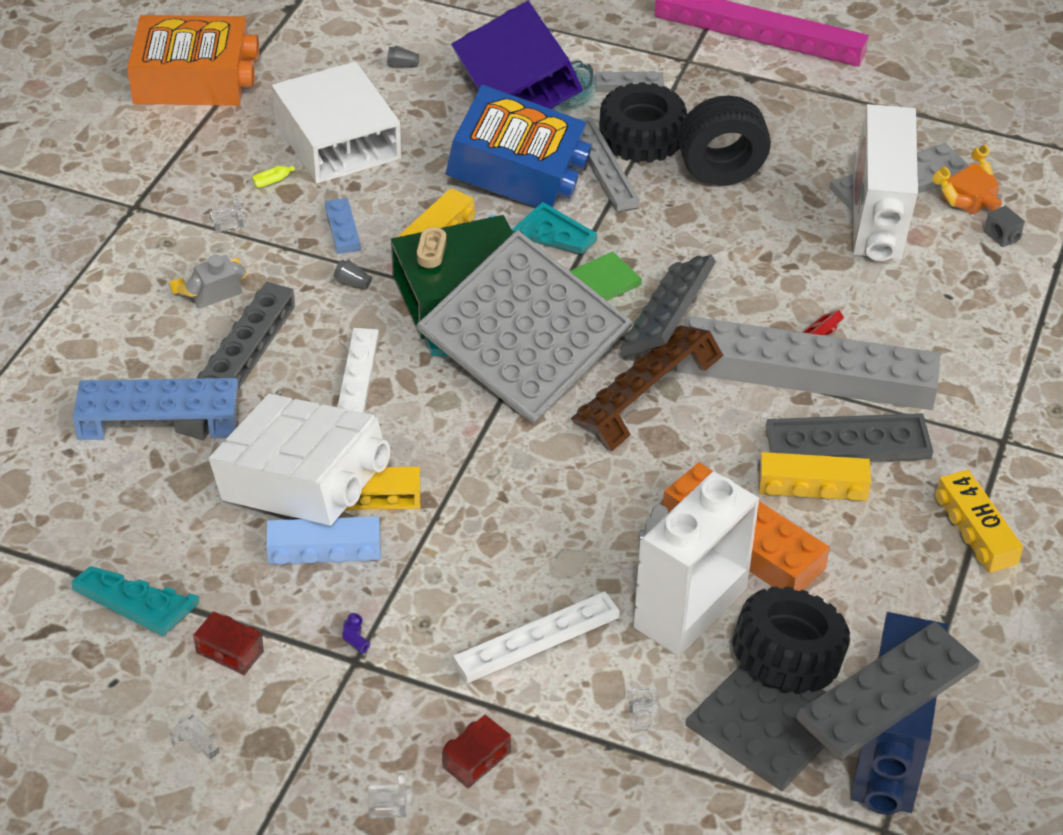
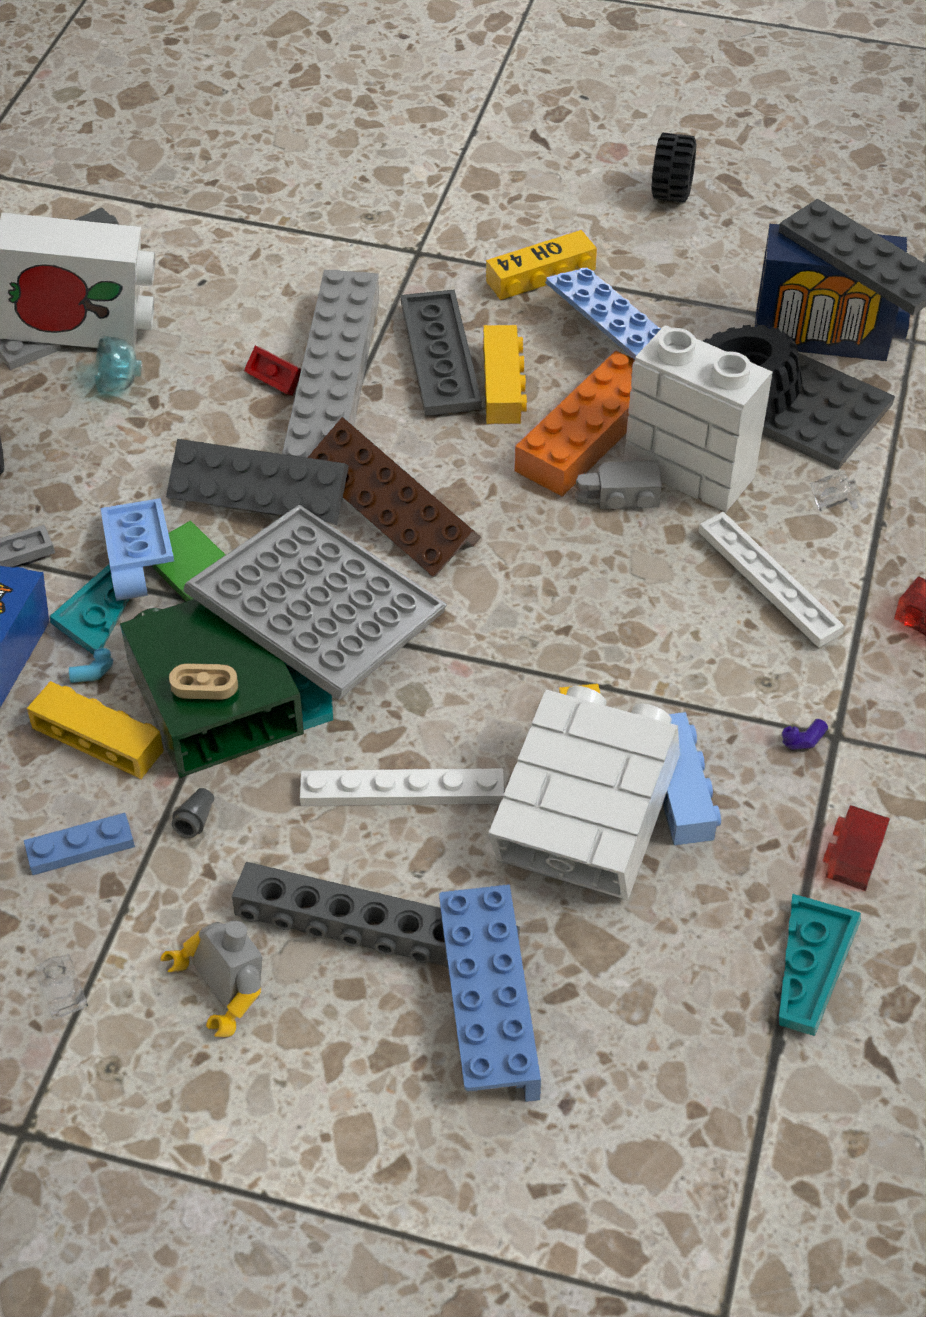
camera: 95 degrees left, 5 degrees up
(630, 242) = (135, 538): none -> light blue hinge
(817, 231) = (115, 365): none -> clear light blue cylinder
(874, 551) = (605, 309): none -> medium blue bracket

